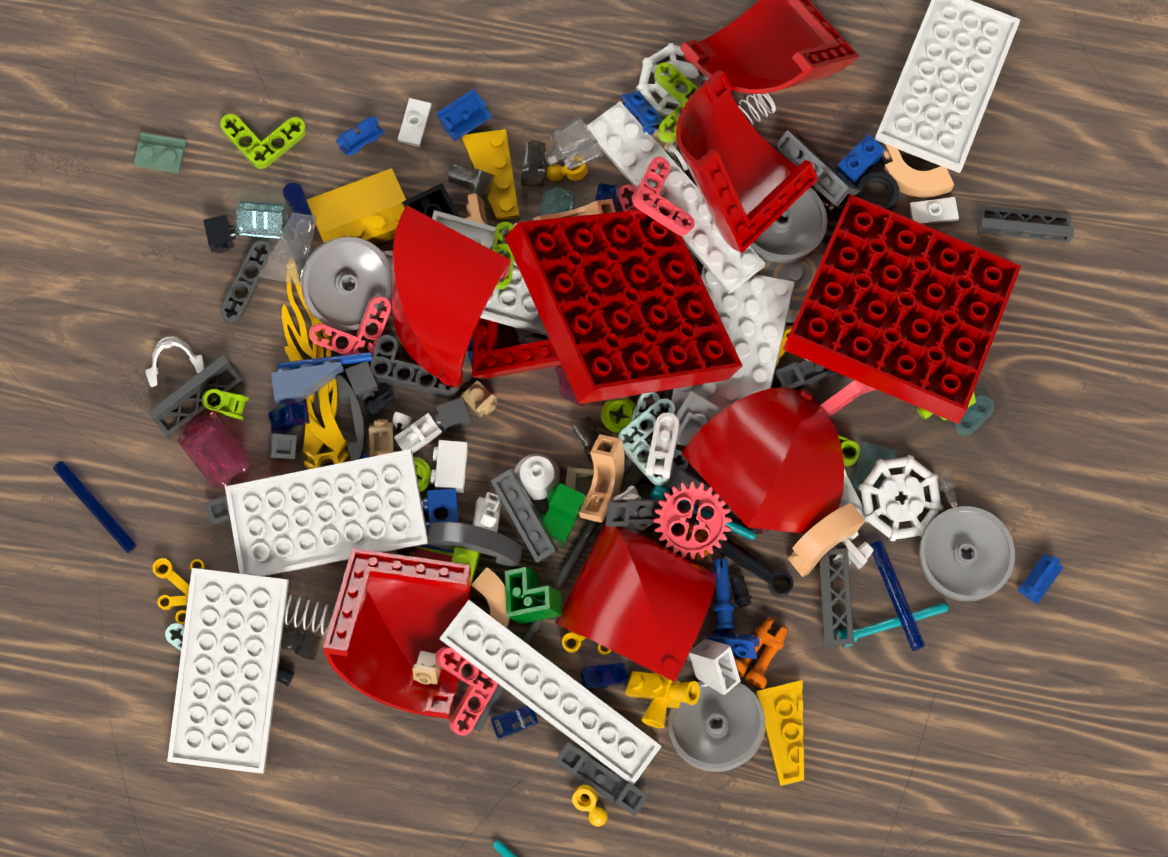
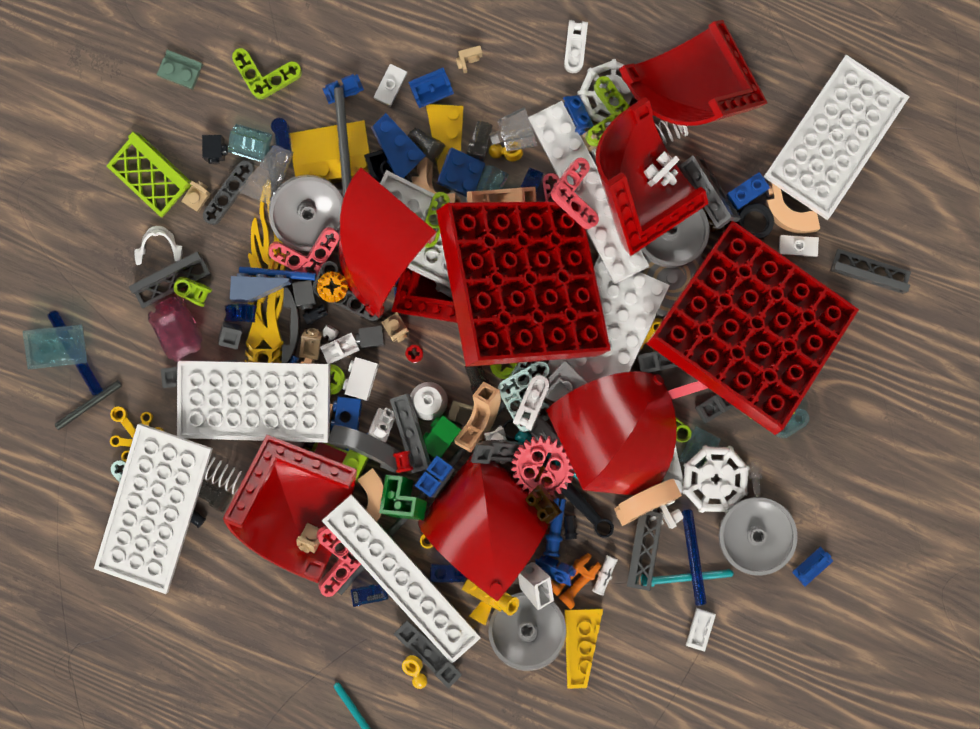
camera: 20 degrees right, 10 degrees up
(71, 500) = (54, 346): none -> clear light blue slope
(122, 566) = (87, 405): none -> pearl dark grey bar
(150, 259) = (160, 161): none -> lime fence
(208, 292) = (196, 196): none -> tan bracket
(373, 192) = (342, 138): none -> dark grey piece
(388, 371) = (339, 292): none -> light orange gear
(443, 188) = (399, 149): none -> blue wing
(500, 70) = (471, 55): none -> tan bracket
(508, 432) = (410, 349): none -> red bush
(518, 201) = (460, 172): none -> blue plate
(522, 549) = (403, 461): none -> red bush
(566, 559) = (438, 475): none -> blue hips
(622, 38) = (575, 46): none -> white plate
(704, 561) = (544, 503): none -> dark brown hips
(748, 158) = (667, 163): none -> white hips
(795, 640) = (604, 575): none -> white pin
(881, 414) = (712, 408): none -> dark grey slope
(925, 681) = (700, 629): none -> white plate

